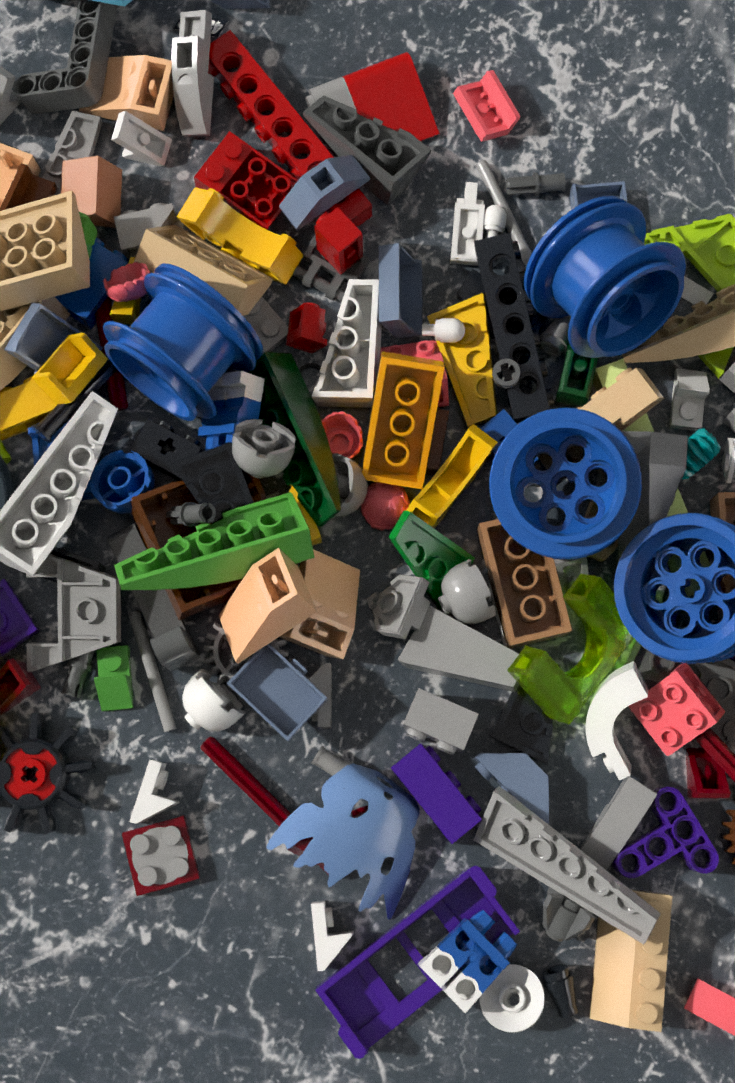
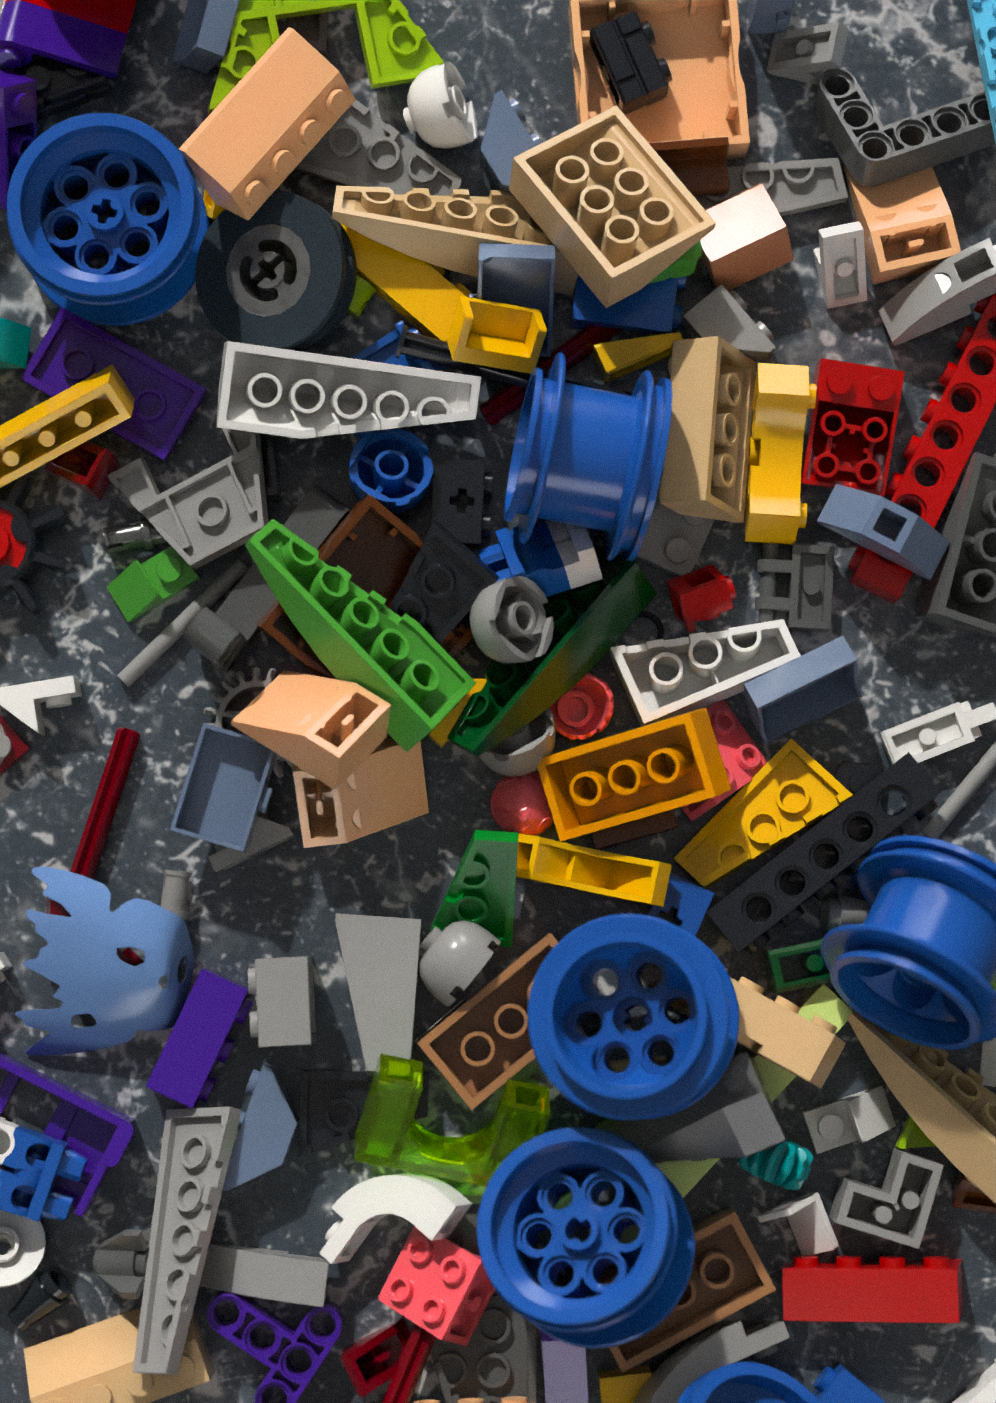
camera: 55 degrees right, 5 degrees up
(127, 282) = (641, 348): coral hair -> none
(191, 514) = (387, 576): dark grey axle -> none
(210, 703) = (174, 713): white cylinder -> none
(338, 240) = (826, 581): red brick -> none
(400, 606) = (402, 884): light grey plate -> none
(445, 330) = (780, 770): white cylinder -> none
(494, 221) = (957, 764): white cylinder -> none
(514, 377) = (757, 888): dark grey bush -> none

